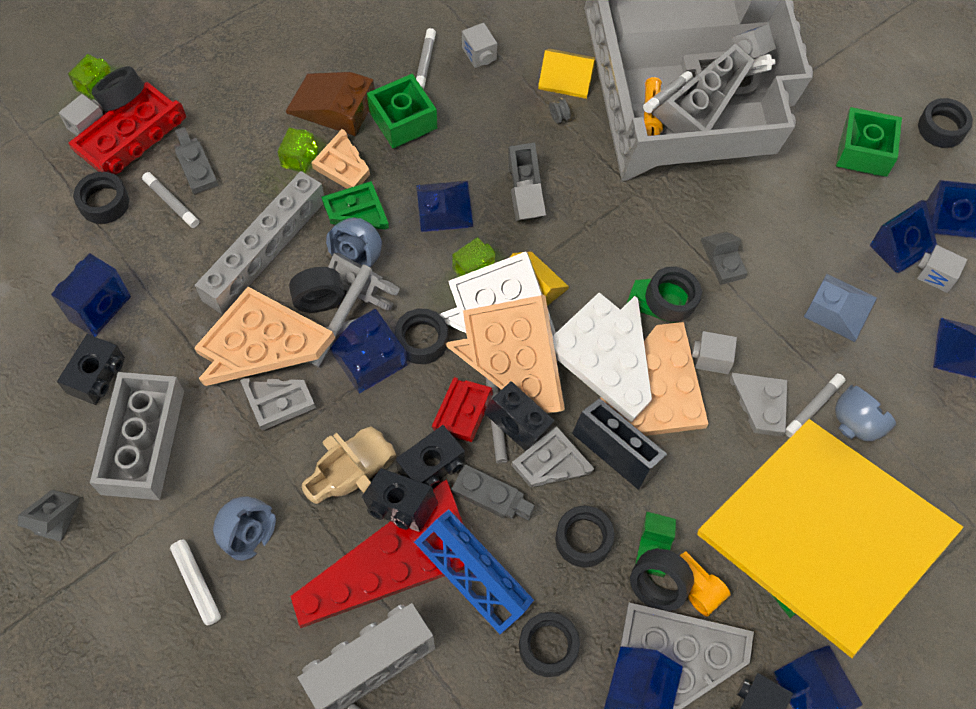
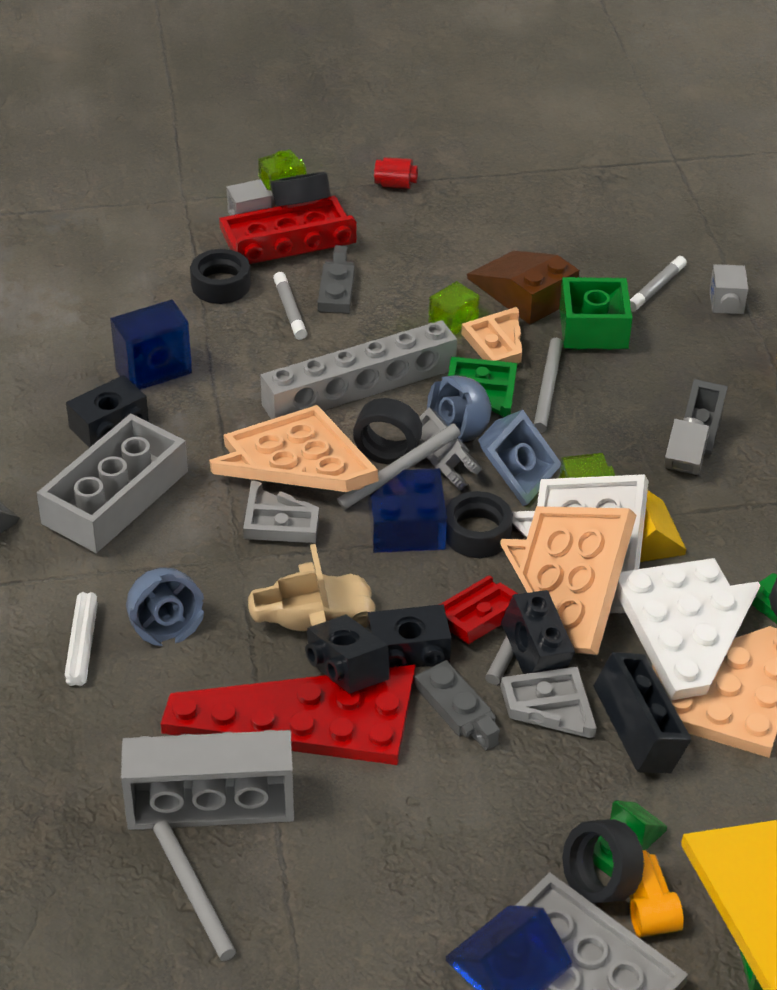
camera: 30 degrees right, 20 degrees down
(180, 38) = (395, 172): none -> red brick
(399, 187) = (548, 384): none -> light grey bar
(416, 263) = (519, 454): none -> sand blue slope
(444, 206) = (585, 419): clear blue slope -> none
(481, 564) = (398, 751): blue fence -> none
(563, 624) = (426, 844): black tyre -> none
(590, 514) = (540, 763): black tyre -> none

